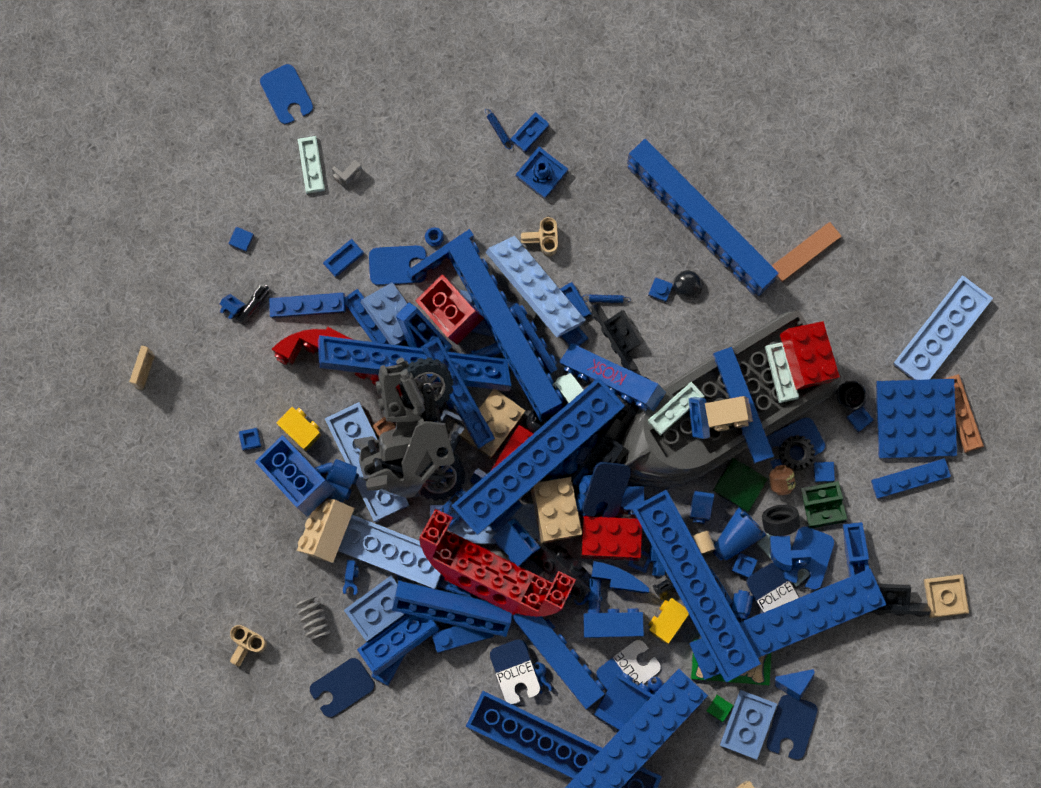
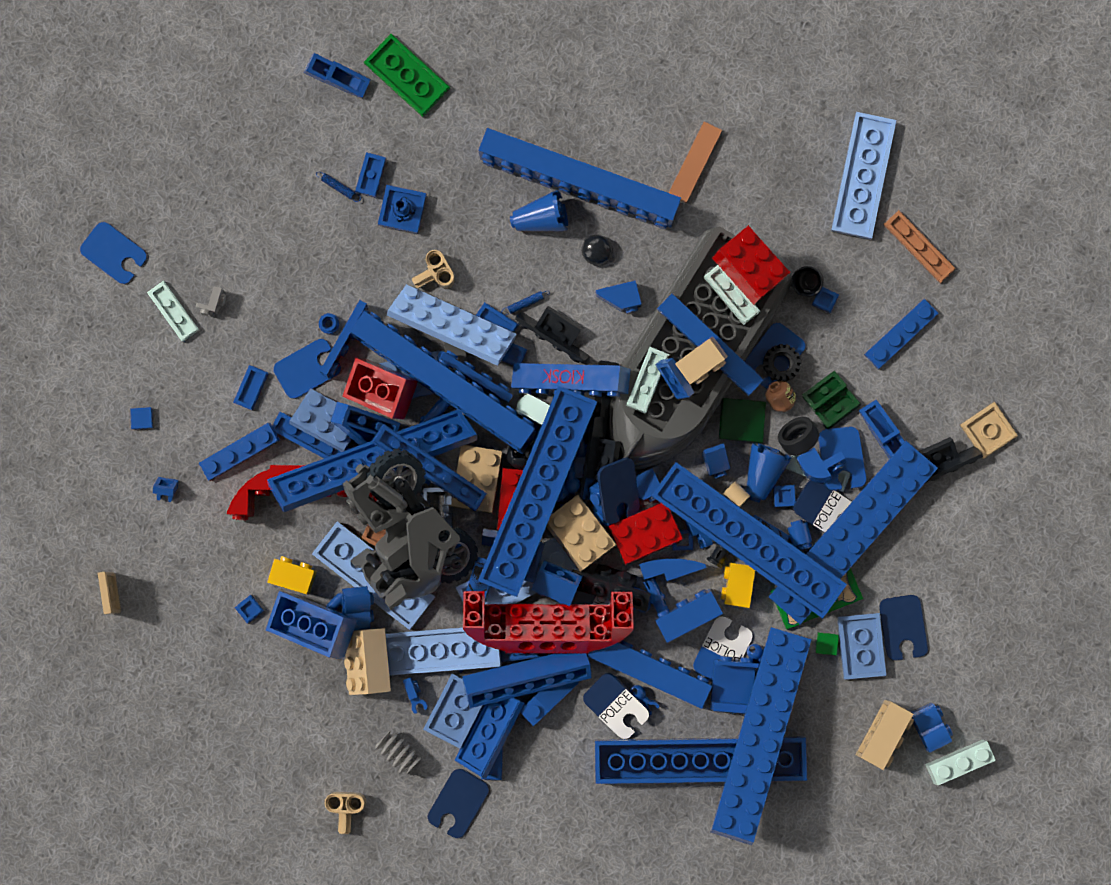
camera: 20 degrees left, 5 degrees up
(252, 305) = (185, 479): black piece -> none
(542, 38) = (336, 75): none -> blue slope
(600, 65) = (406, 75): none -> green tile
(655, 232) = (541, 215): none -> blue cone
(660, 289) = (573, 267): blue plate -> none
(688, 332) = (621, 296): none -> blue slope
(795, 683) = (887, 585): blue slope -> none
(824, 472) = (816, 368): blue tile -> none
(916, 418) = (879, 273): blue plate -> none

